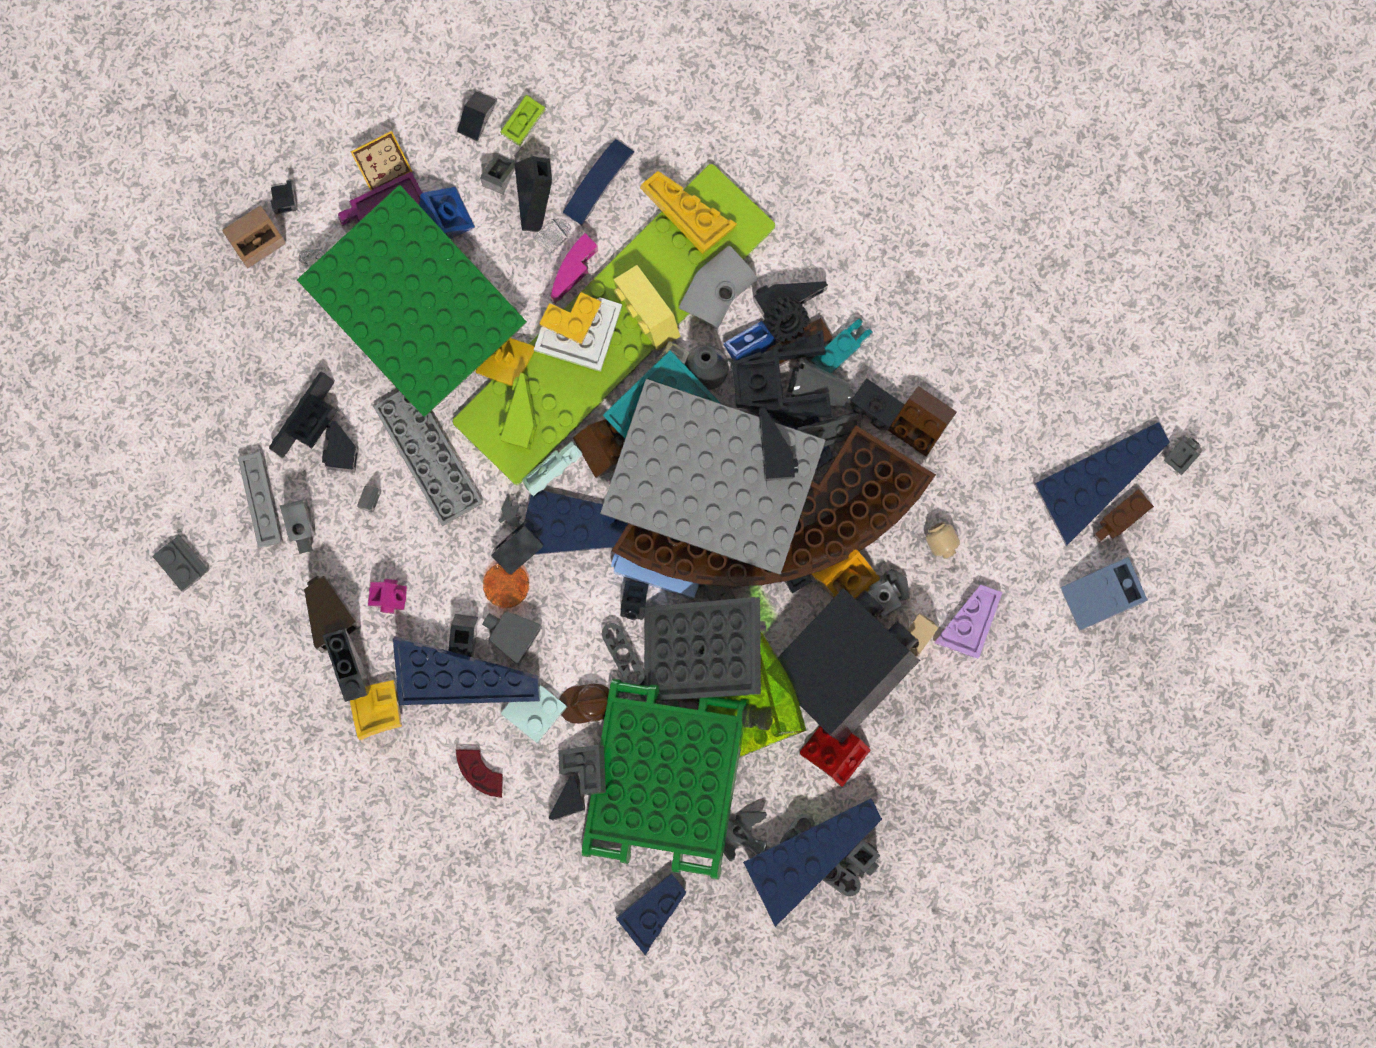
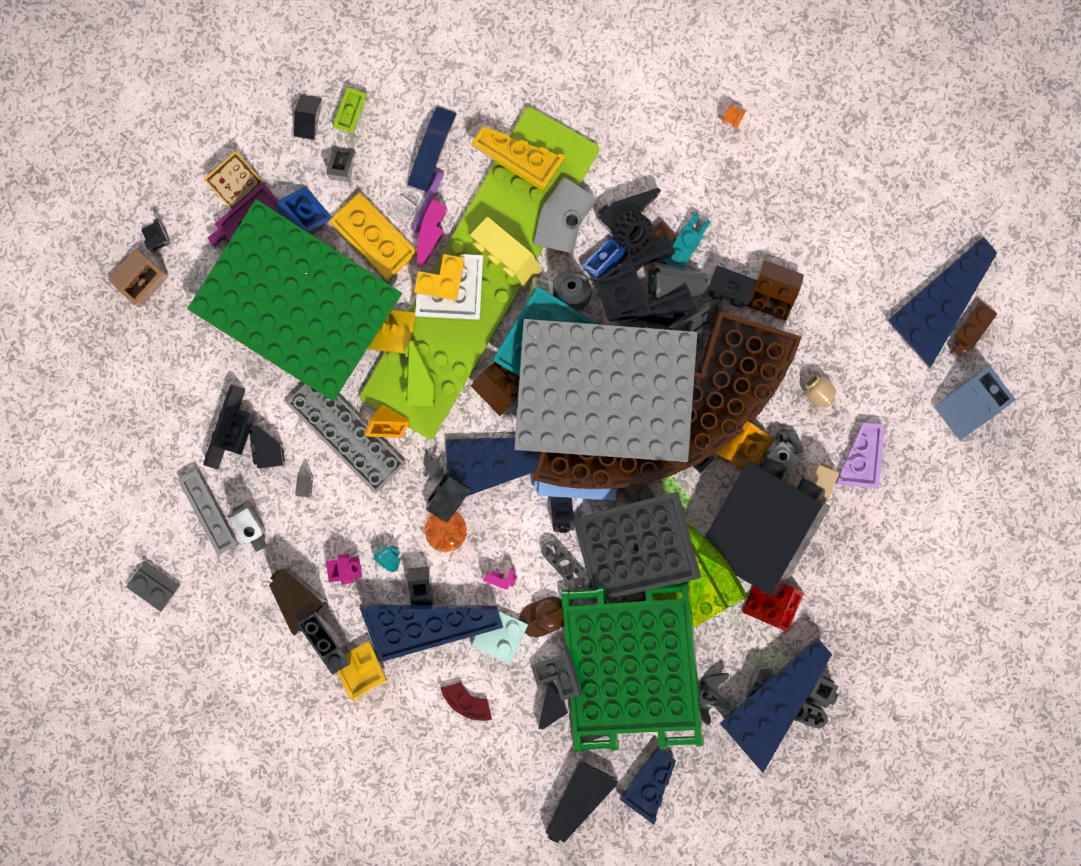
camera: 15 degrees left, 5 degrees up
(437, 597) = (388, 558): none -> teal cone
(473, 455) = (386, 424): none -> light orange slope
(512, 257) = (373, 236): none -> yellow tile
(512, 634) = (463, 574): dark grey torso -> none
(533, 190) = (376, 172): black slope -> none
(546, 648) = (497, 579): none -> dark pink bracket
(551, 468) = (458, 418): light aqua hinge -> none
(573, 905) = (580, 798): none -> black slope
(584, 228) = (427, 200): none -> medium lavender bar
(758, 717) = (701, 594): clear smoke wheel -> none
(776, 454) = (657, 356): black slope -> none
(925, 228) = (733, 116): none -> orange wheel
(1183, 454) = (1012, 260): dark grey bracket -> none

